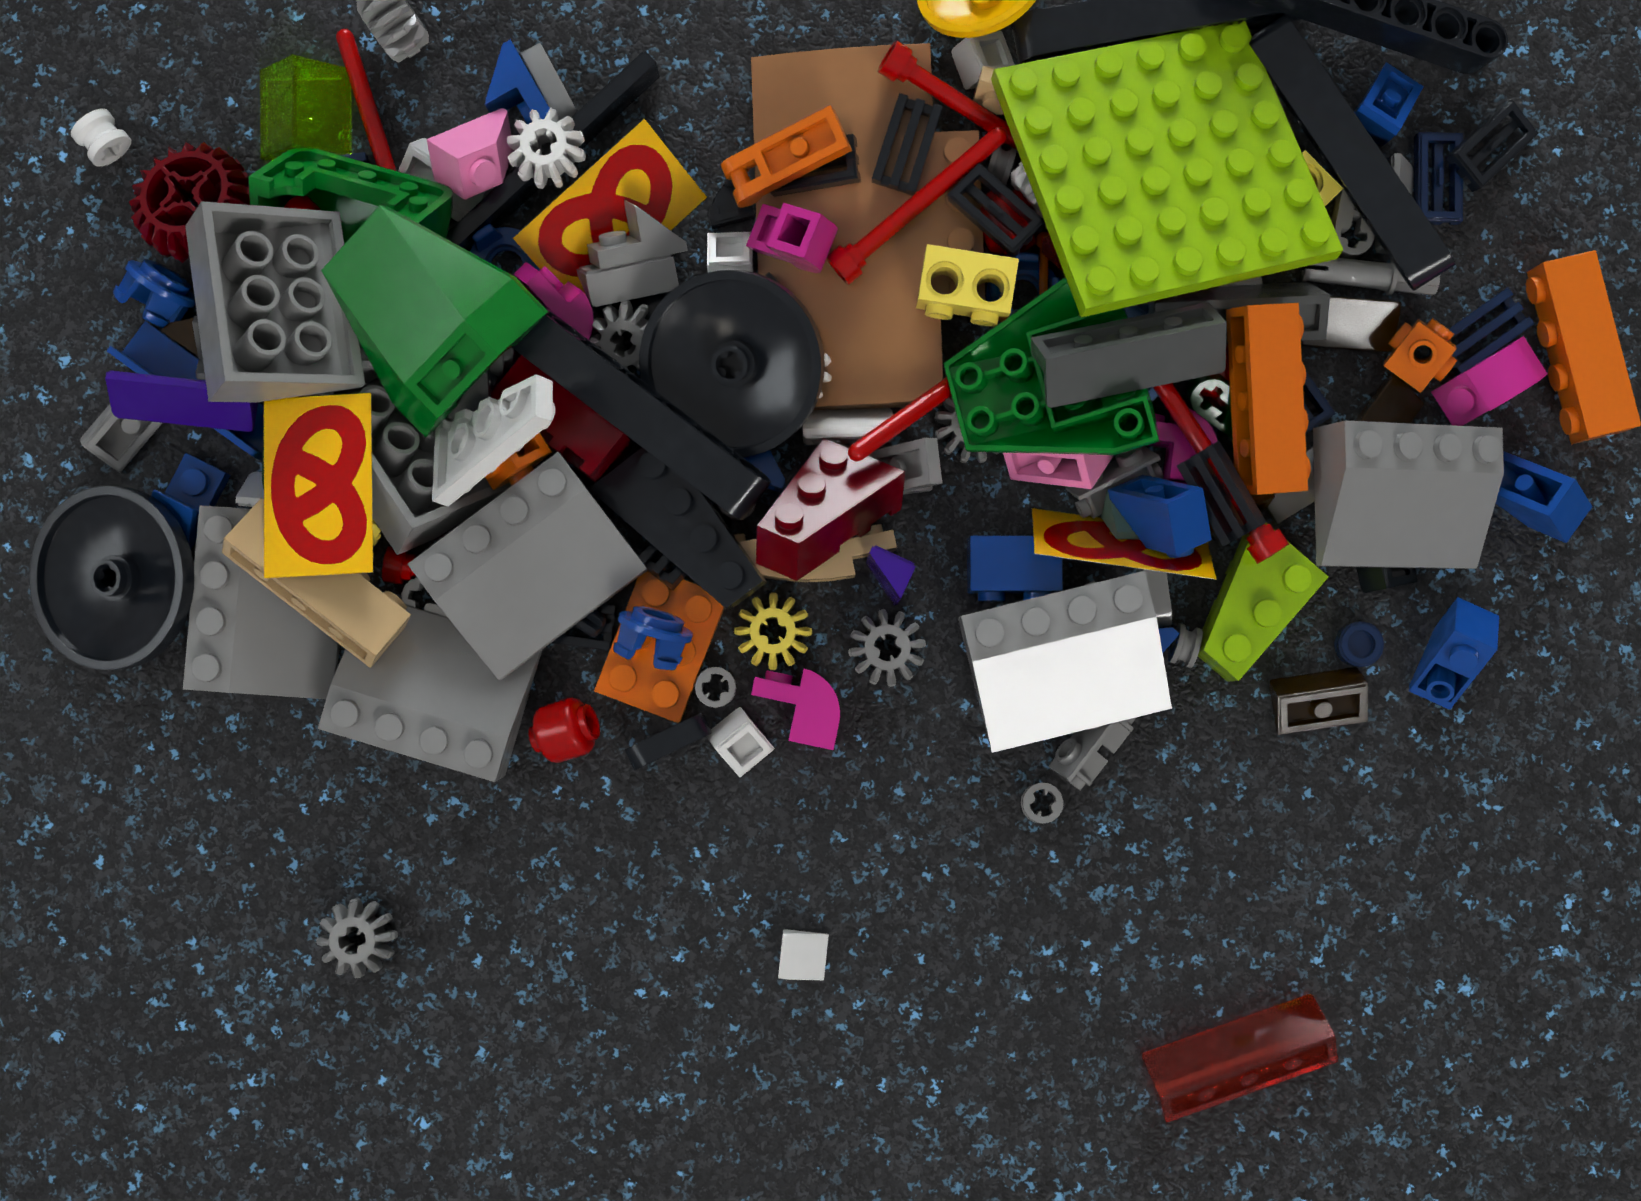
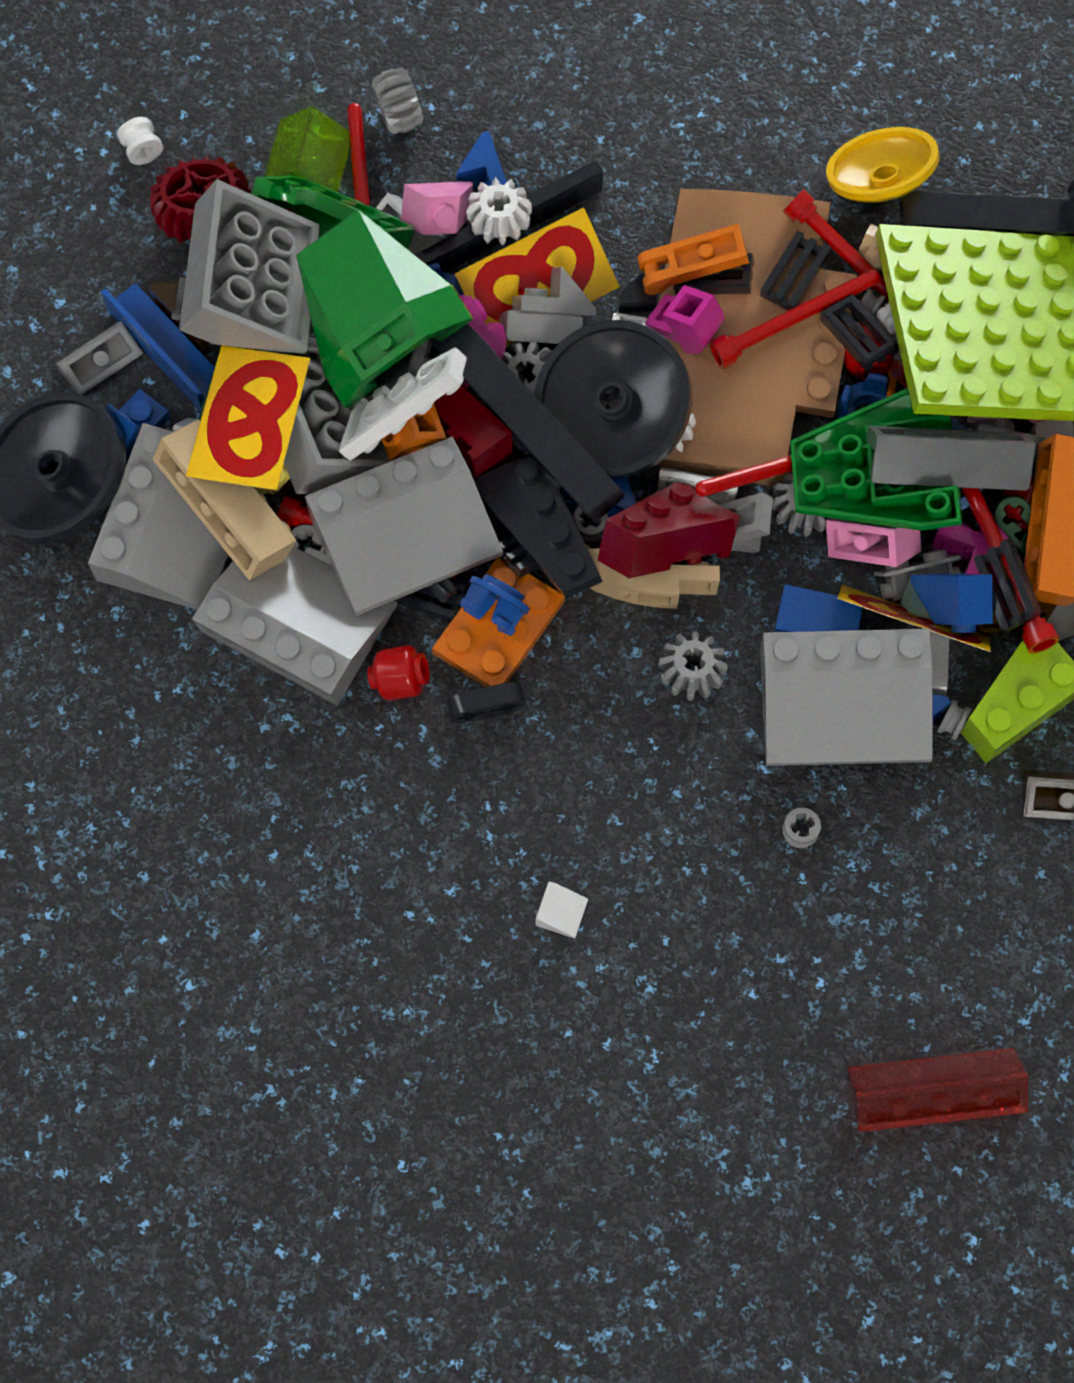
camera: 15 degrees right, 15 degrees down
(159, 288) = (151, 258): blue piece -> none
(174, 402) = (150, 336): dark purple slope -> none
(366, 954) = (184, 816): light grey gear -> none
(548, 81) = (511, 165): light grey beam -> none
(706, 677) = (529, 660): light grey bush -> none
(739, 742) = (547, 720): white slope -> none
(762, 641) = (611, 639): light yellow gear -> none
(816, 707) = (617, 696): dark pink brick -> none
(890, 571) = (710, 591): dark purple slope -> none
(967, 271) = (826, 373): light yellow brick -> none
(980, 51) = (860, 220): white slope -> none
(1078, 756) = (843, 792): light grey hinge -> none

